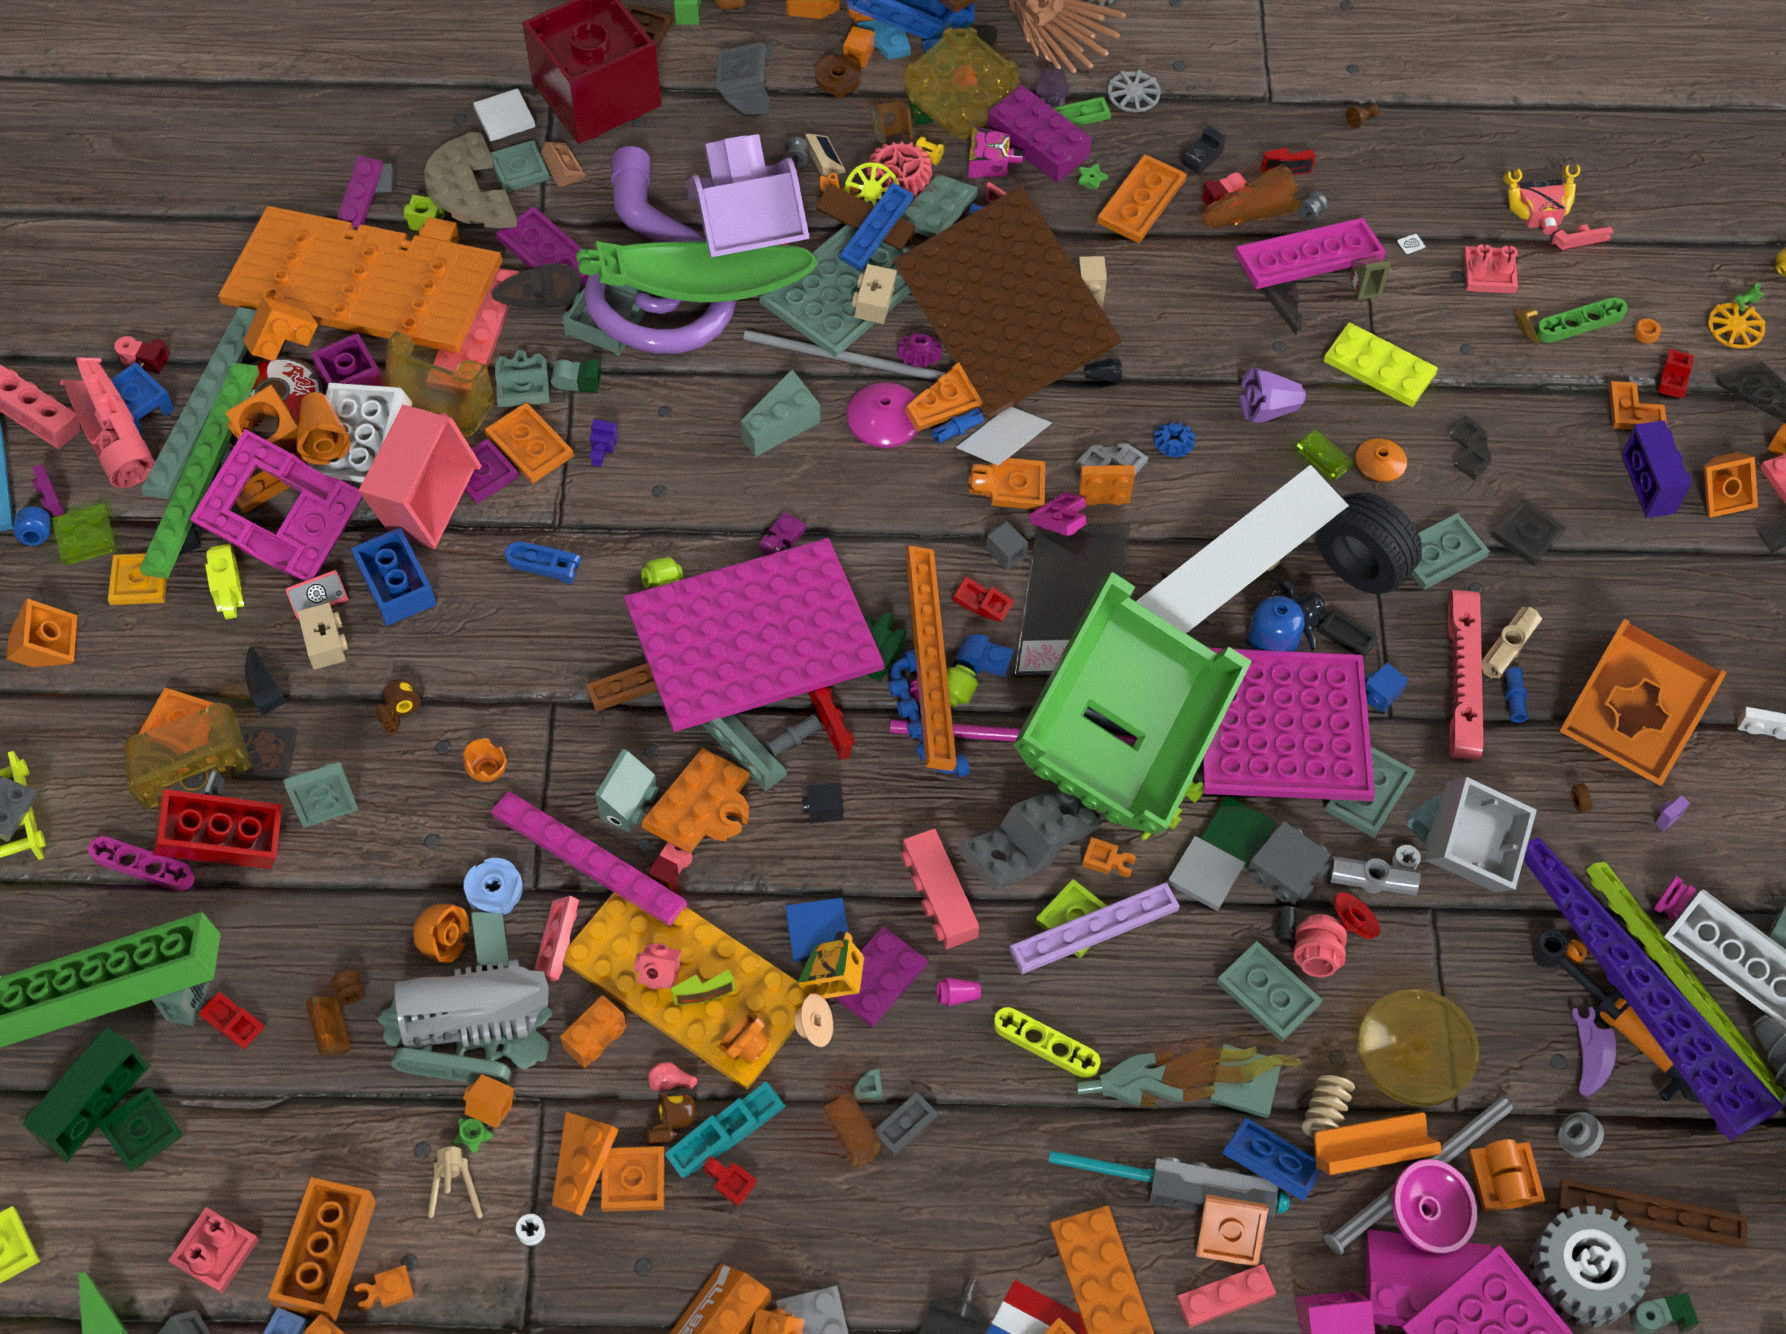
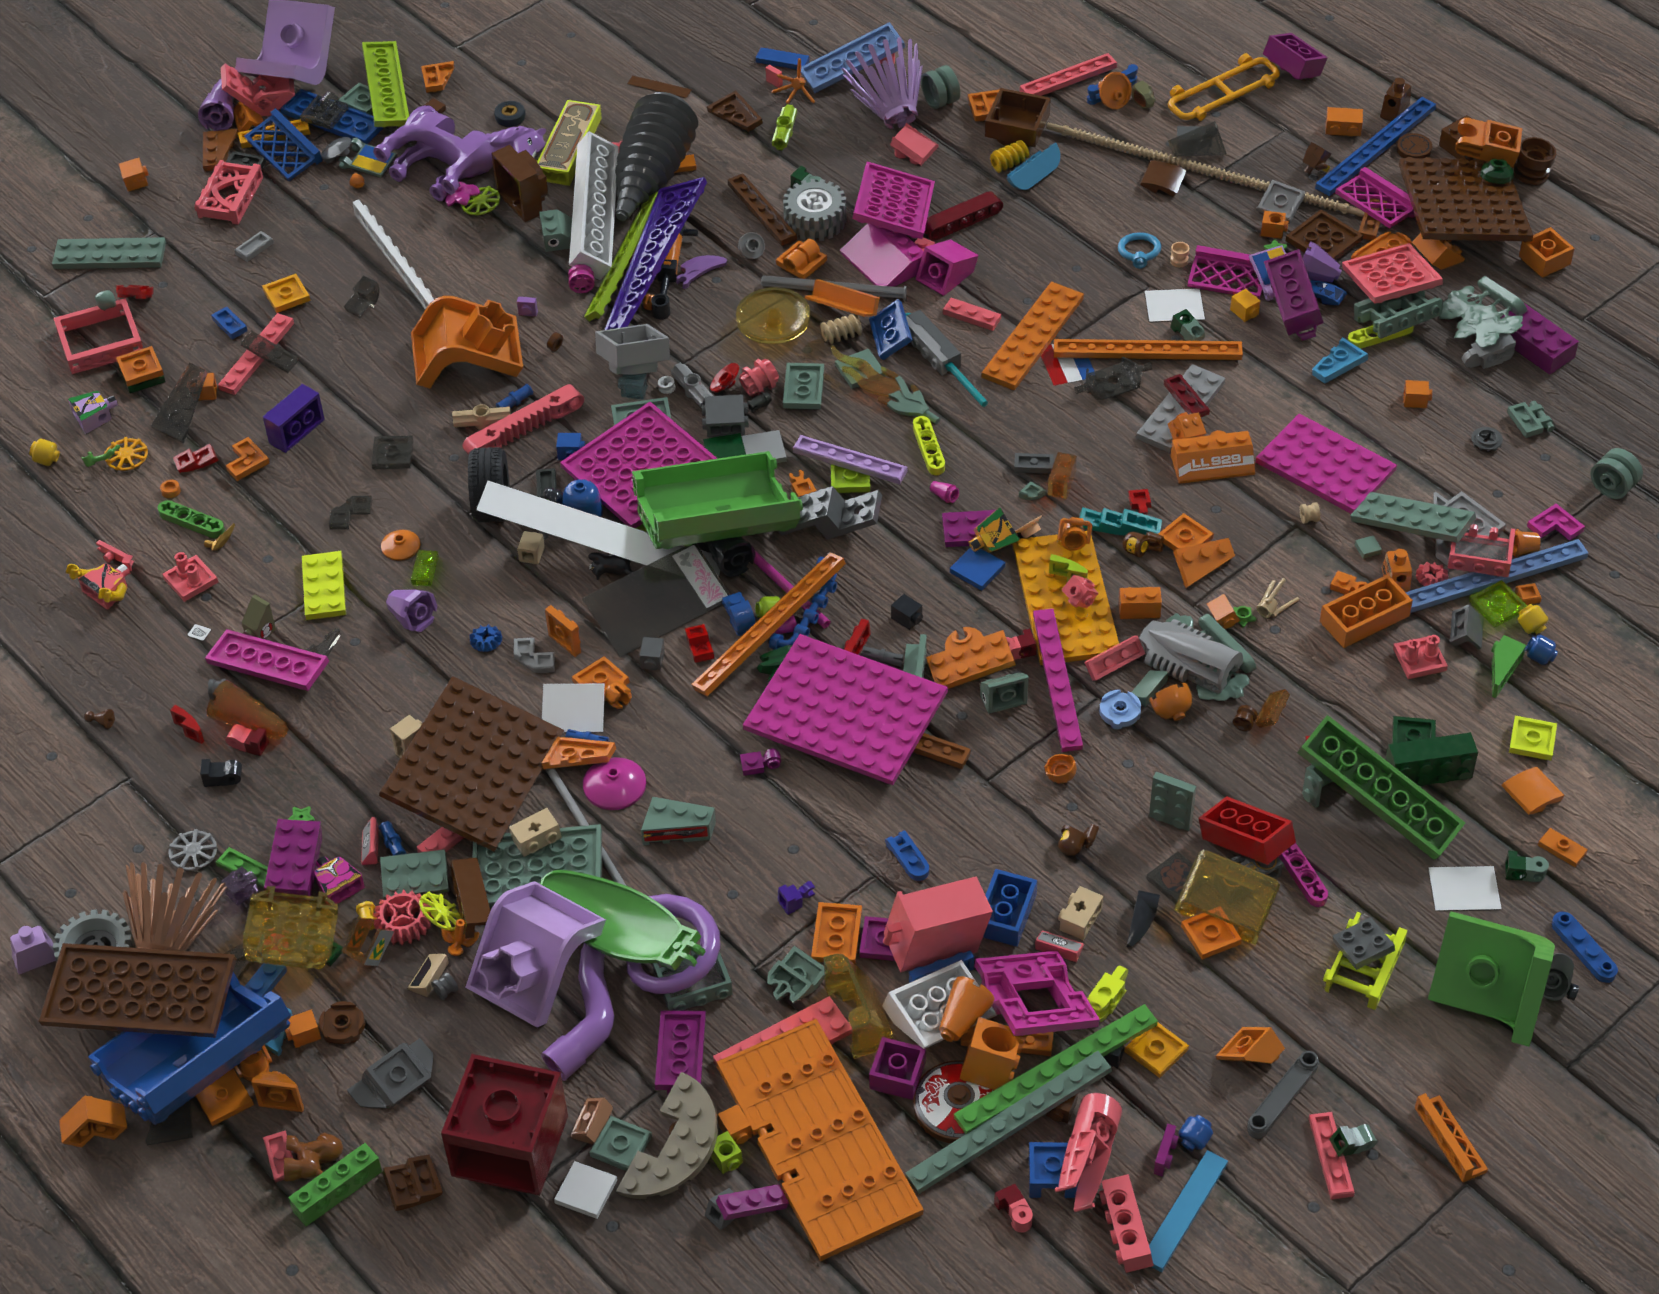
camera: 130 degrees left, 10 degrees down
(84, 534) = (1165, 1106): clear neon green plate -> none
(277, 323) = (915, 1126): orange brick -> none
(522, 1235) = (1255, 561): white bush -> none
(539, 287) = (716, 1024): clear smoke shield -> none
(577, 375) = (759, 950): leg -> none
(660, 572) = (853, 789): lime head -> none
(667, 1076) = (1122, 563): coral animal -> none
(876, 227) = (478, 870): blue plate -> none
(919, 350) = (550, 793): magenta gear -> none
(940, 889) = (898, 534): coral brick -> none
(1061, 514) = (610, 642): dark pink plate -> none
(1141, 198) = (296, 777): orange plate -> none
(1231, 1230) = (943, 321): orange plate -> none
(1447, 550) = (442, 478): sand green plate -> none
(1447, 1202) = (849, 267): dark pink dish -> none
(1730, 484) = (263, 392): orange slope -> none

